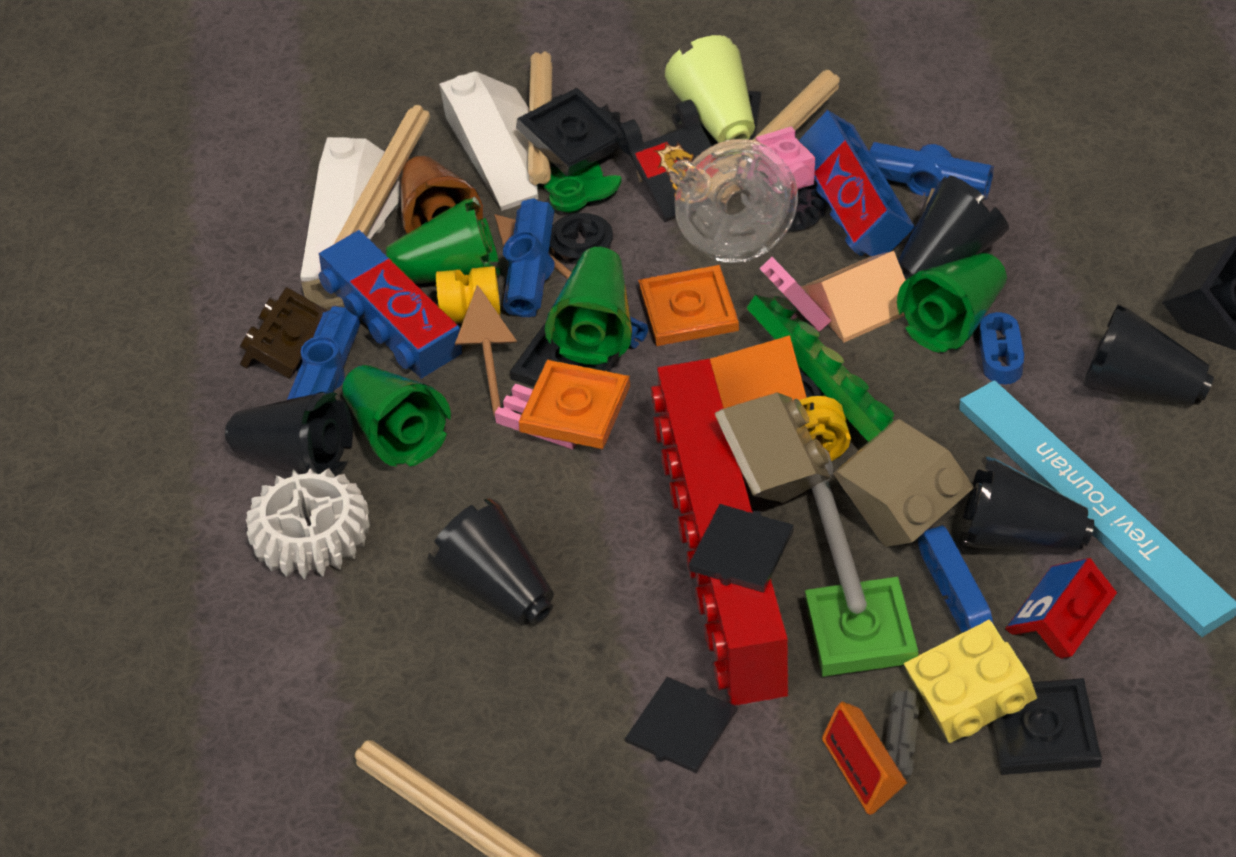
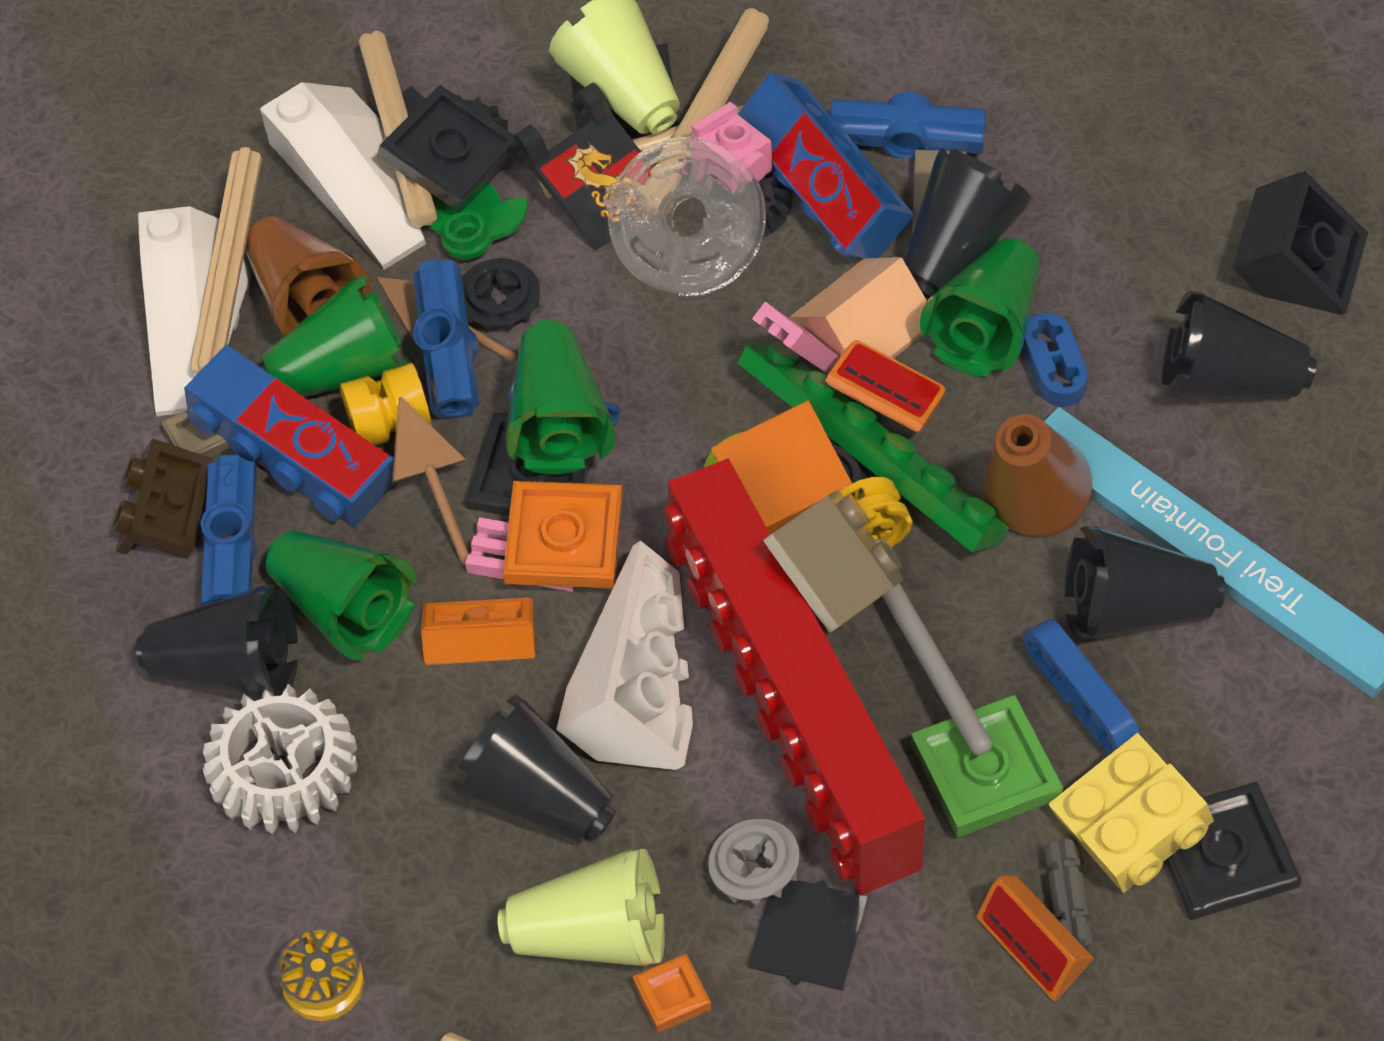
camera: 15 degrees left, 10 degrees up
(295, 668) = (322, 976): none -> yellow wheel
(490, 463) = (478, 630): none -> orange slope
(509, 672) = (590, 914): none -> yellowish green cone
(557, 747) = (672, 993): none -> orange tile
(593, 516) = (626, 684): none -> white wedge
(651, 648) = (748, 841): none -> light grey gear
(688, 305) = (659, 366): orange tile -> none
(741, 548) = (839, 710): black piece -> none
(859, 341) = (886, 385): none -> slope
(902, 483) = (994, 574): dark tan slope -> none
(960, 414) = (1036, 478): none -> dark orange cone
(1065, 606) = (1211, 692): red panel -> none

